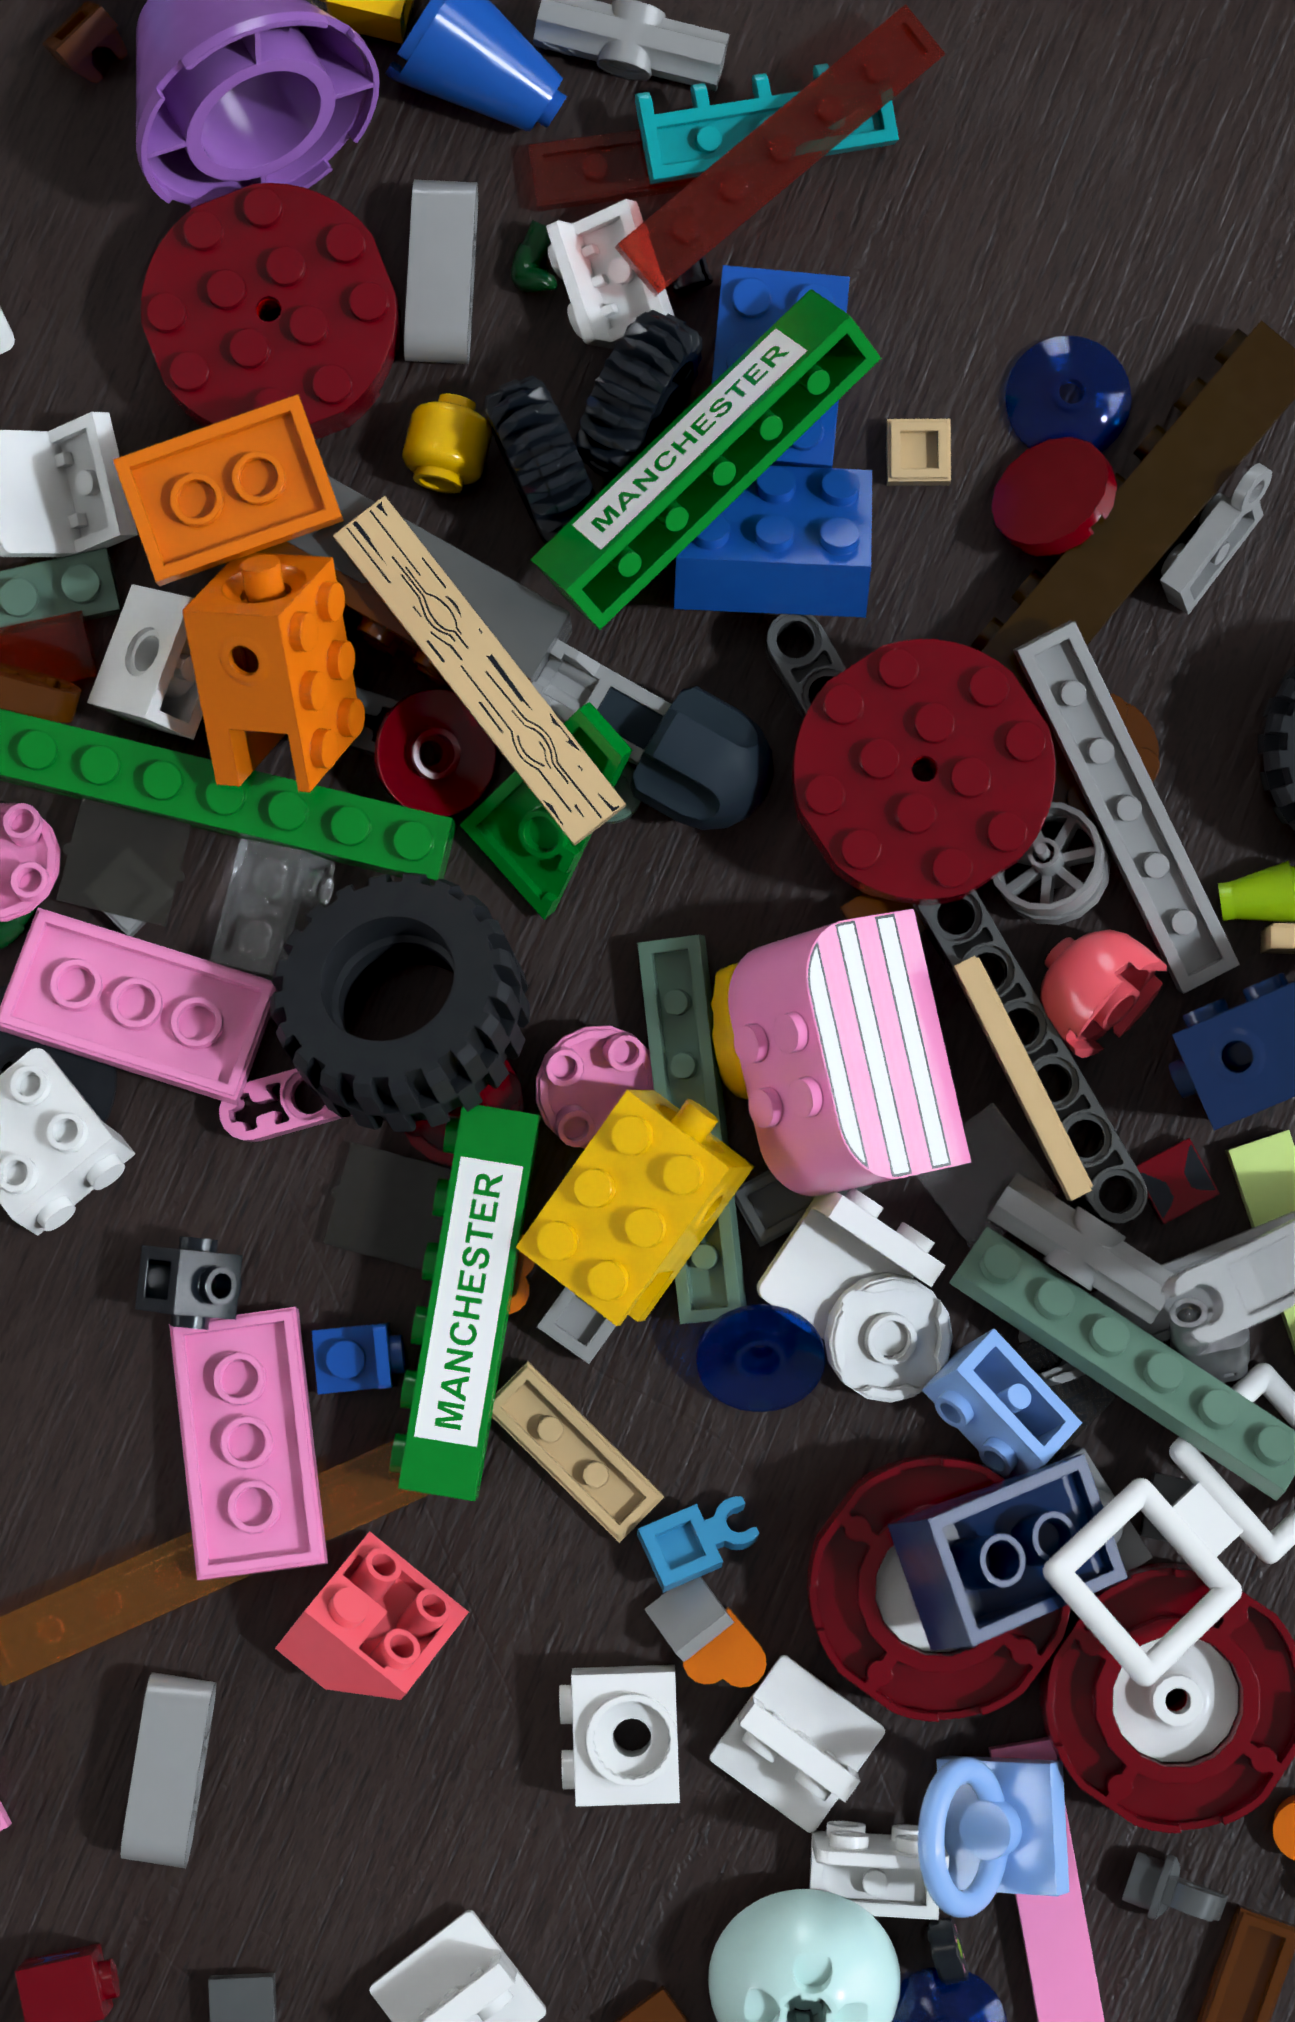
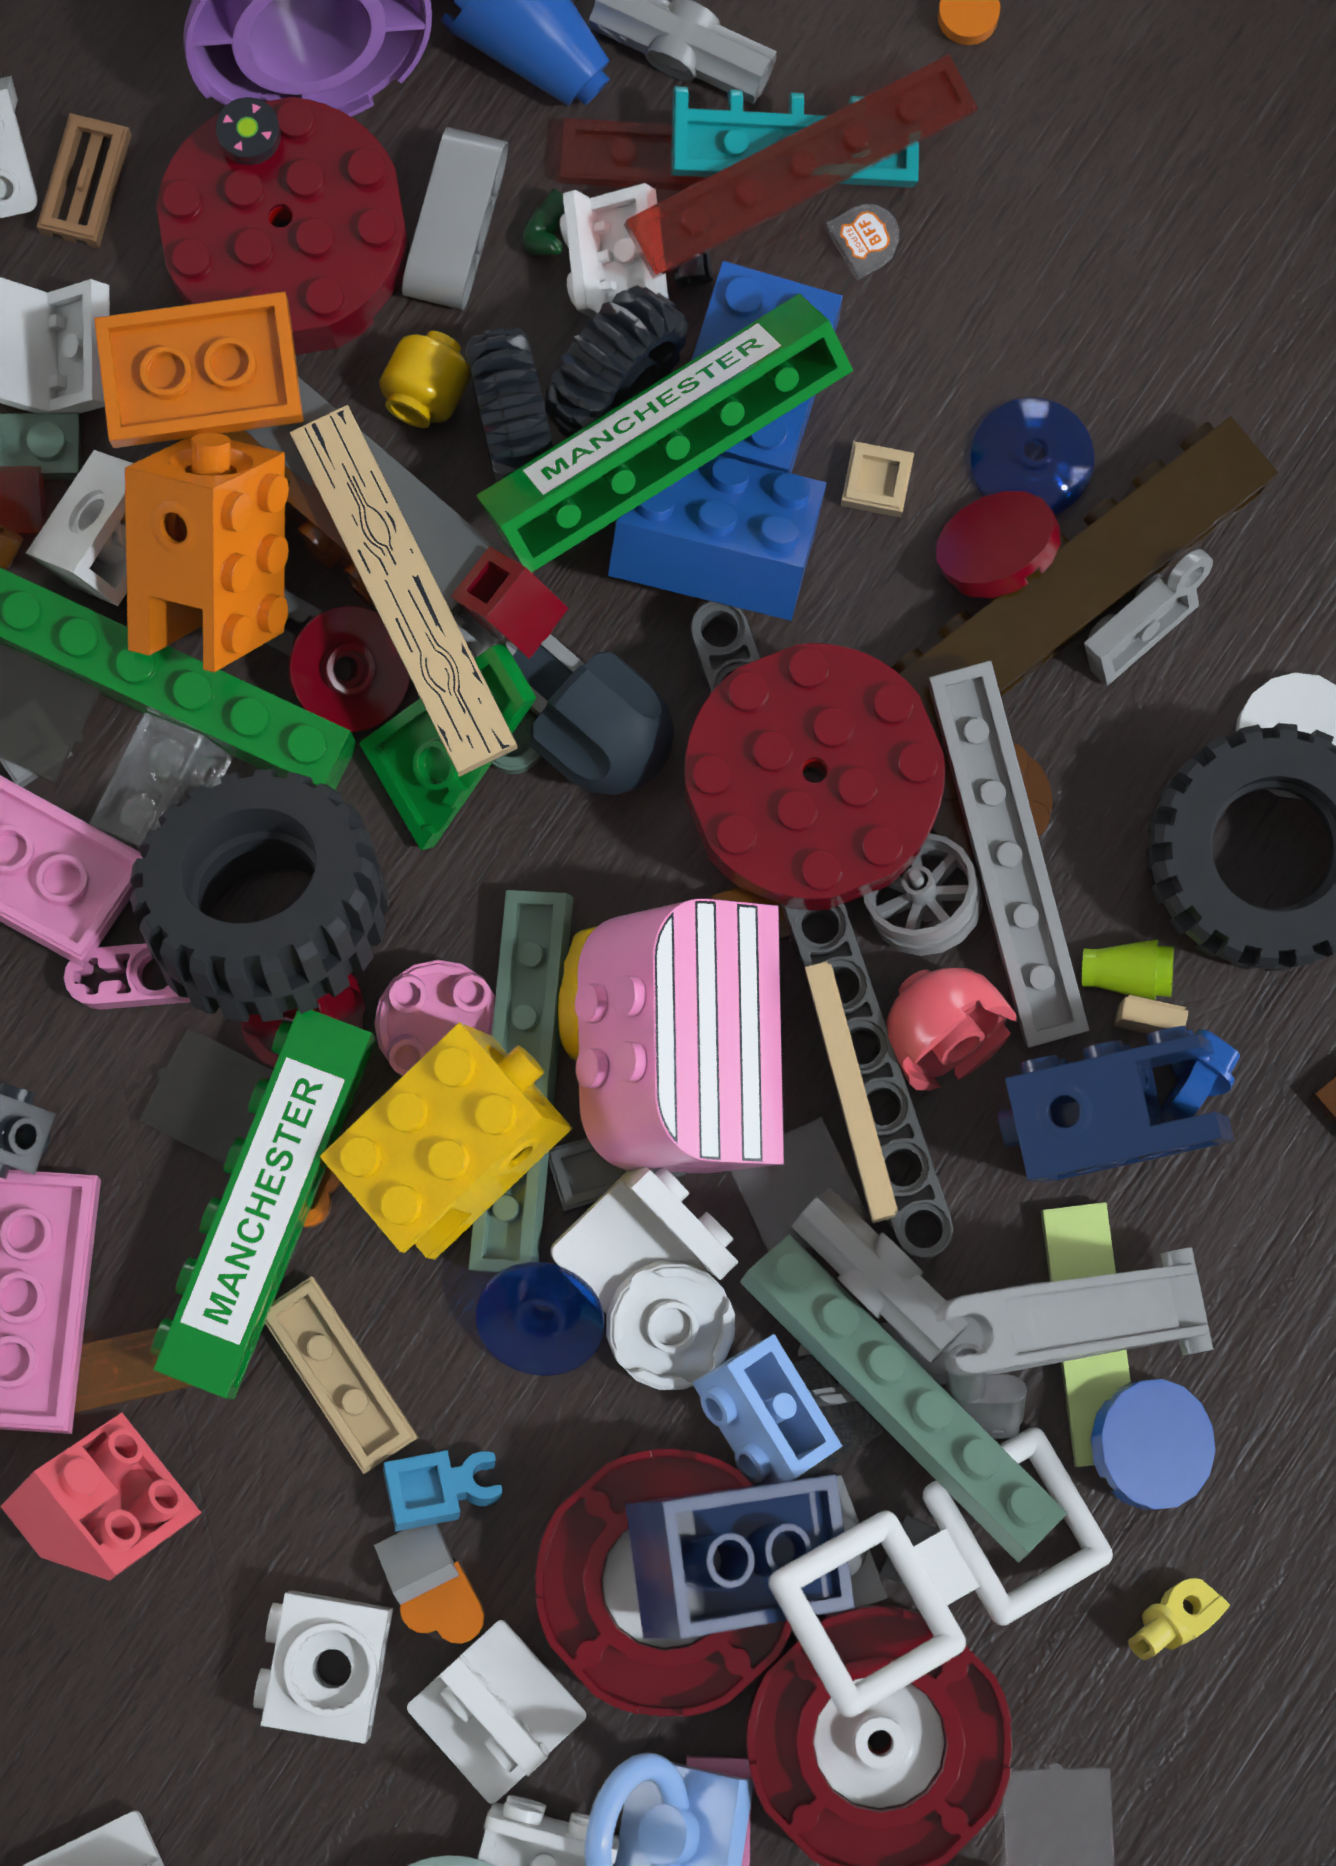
camera: 10 degrees right, 5 degrees down
(55, 359) = (71, 228): none -> medium nougat tile
(219, 230) = (248, 131): none -> black tile
(357, 1358) = (146, 1238): blue bracket -> none
(576, 1325) = (368, 1250): light grey plate -> none
(587, 661) = (509, 602): none -> dark red brick
(856, 207) = (865, 238): none -> tile
(1176, 1181) = (985, 1230): dark red tile -> none

